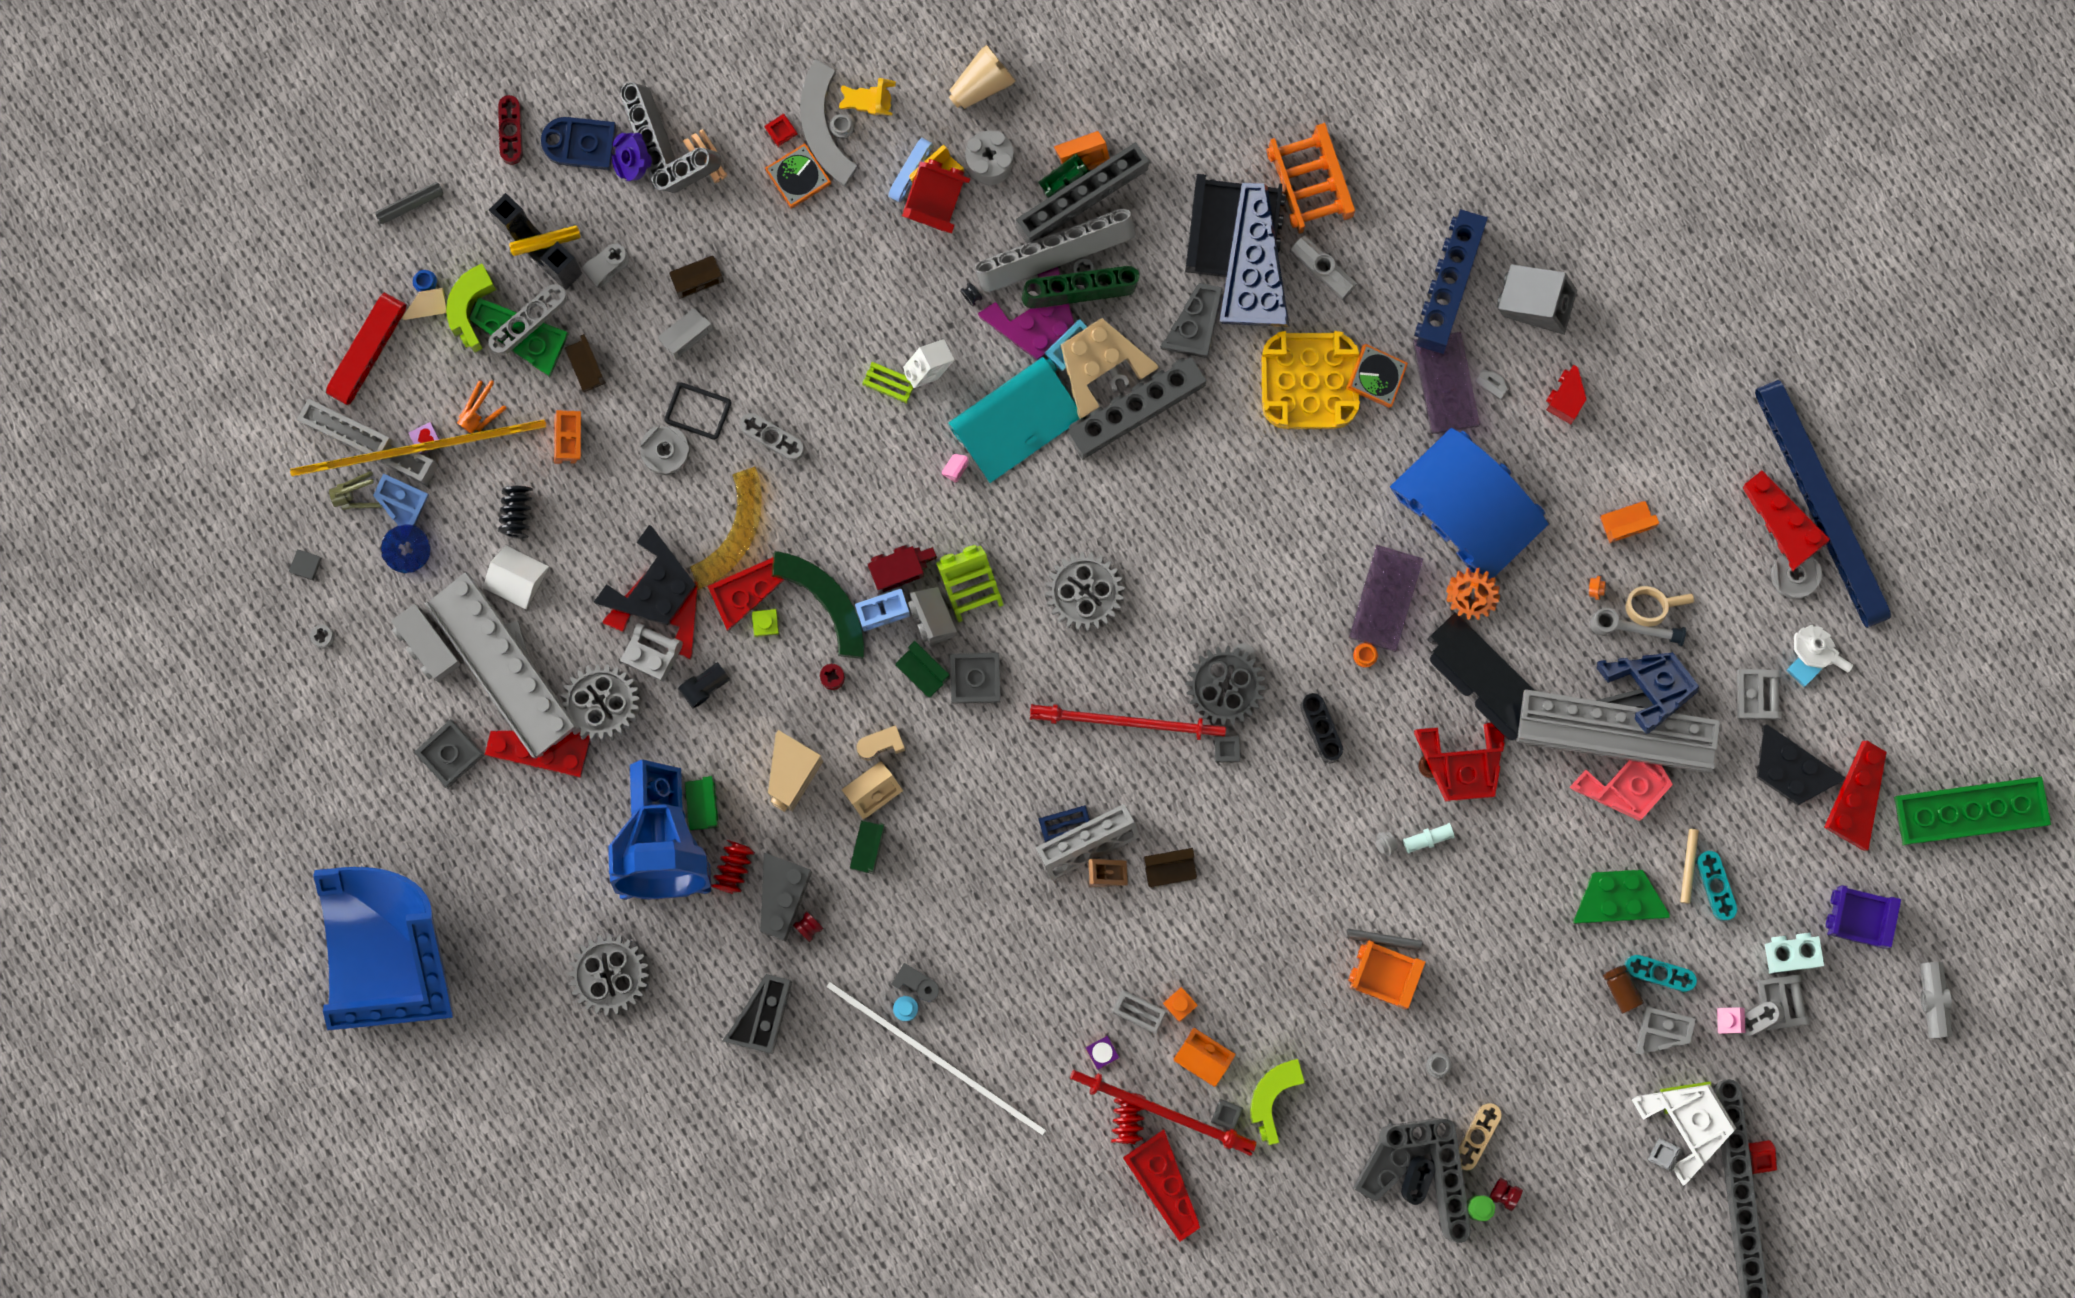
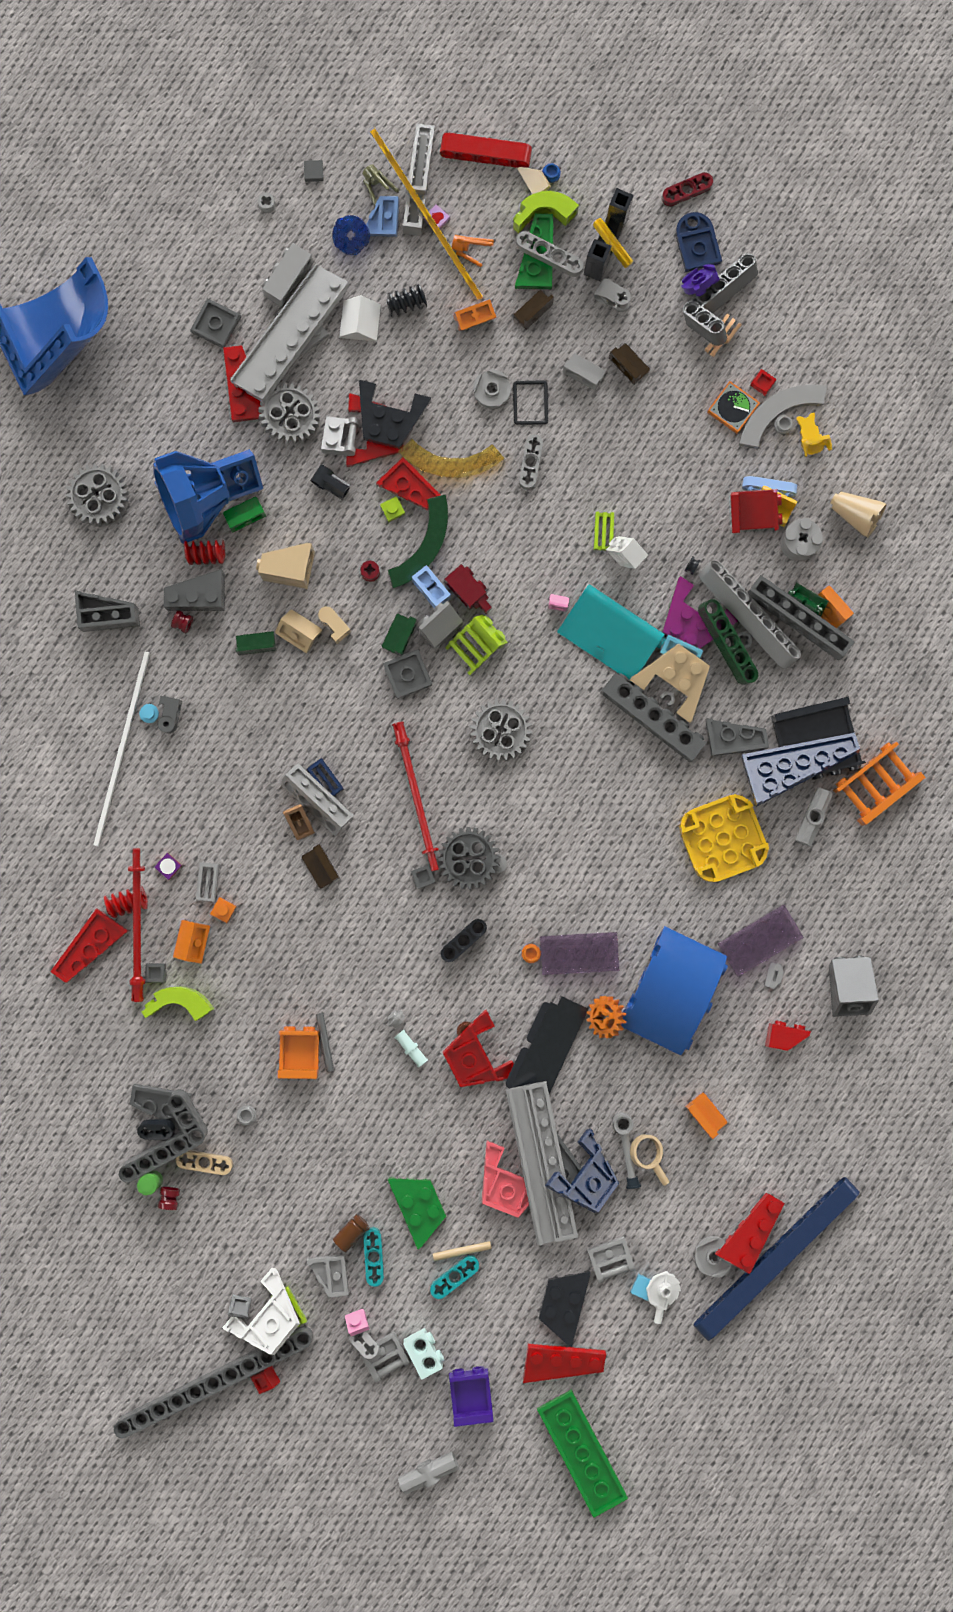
camera: 65 degrees right, 5 degrees up
(409, 203) = (607, 141): dark grey axle -> none
(1377, 375) = (746, 886): tile -> none
(1472, 227) = (888, 917): dark blue brick -> none
(1597, 587) = (646, 1108): orange plate -> none

